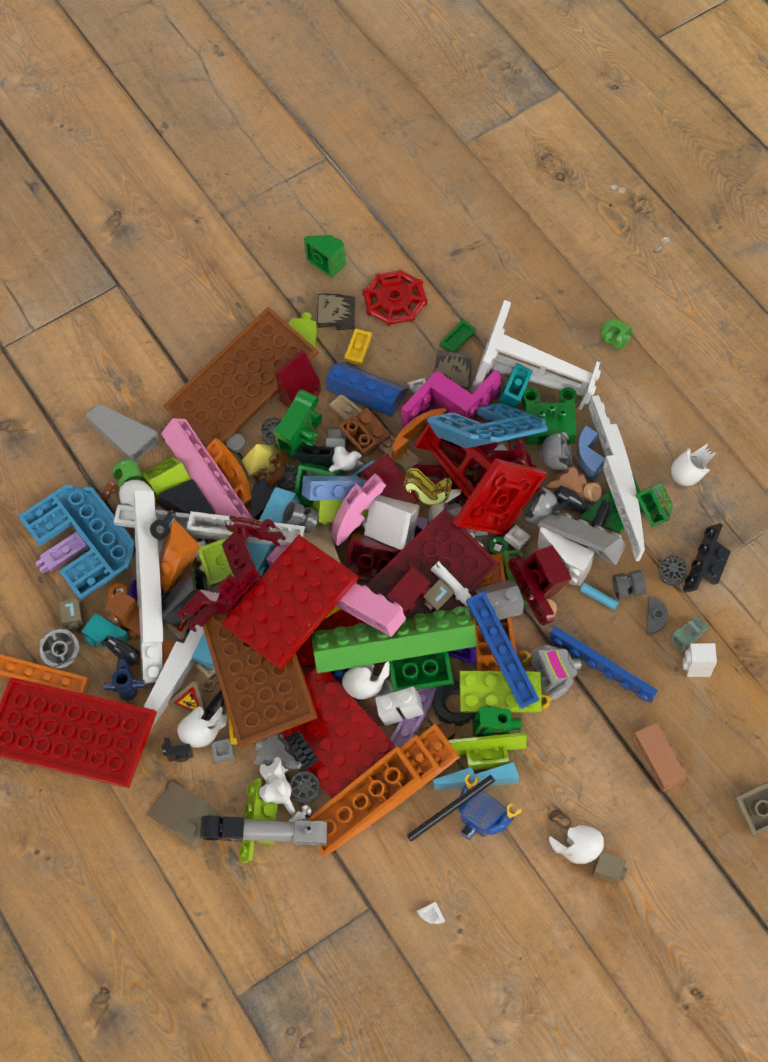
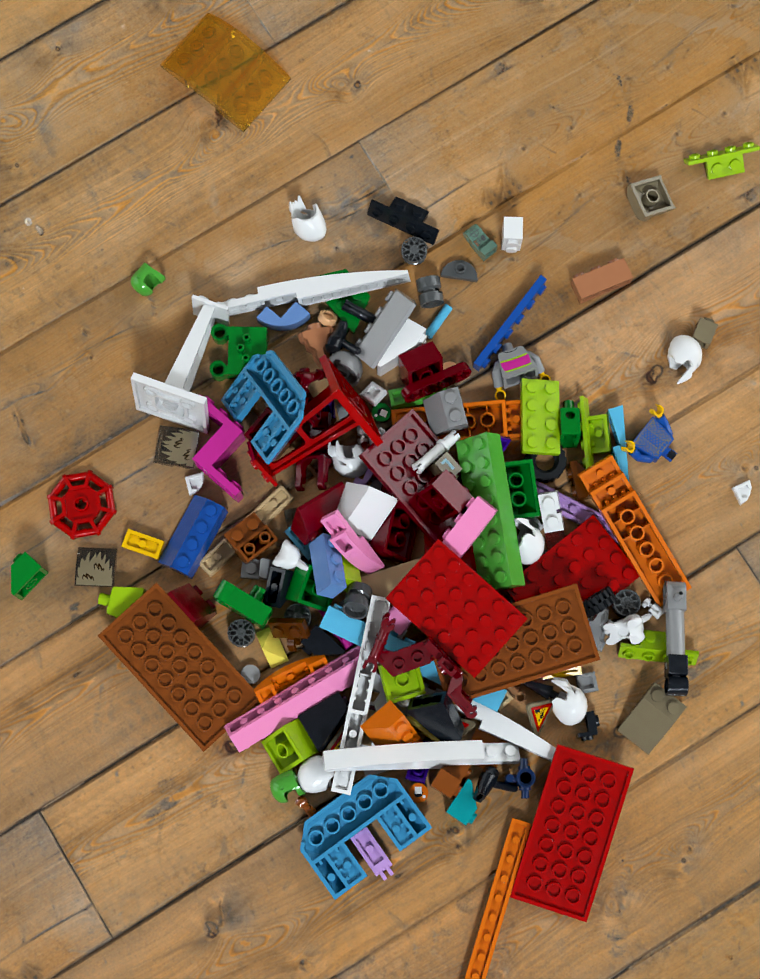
camera: 90 degrees left, 15 degrees up
(58, 647) = (482, 848): light grey cylinder -> none
(71, 614) = (444, 838): dark tan brick -> none
(122, 433) = (236, 792): light grey slope -> none
(164, 523) = (364, 741): black plate -> none
(411, 430) = (267, 501): orange slope -> none
(426, 490) = (334, 472): clear yellow animal -> none
(451, 807) = (651, 467): black piece -> none
(457, 336) = (135, 441): green tile -> none
(502, 650) = (506, 409): blue plate -> none
(515, 385) = (207, 383): teal slope -> none
(556, 451) = (285, 347): light grey cylinder -> none
(655, 501) = (342, 258): green torso -> none

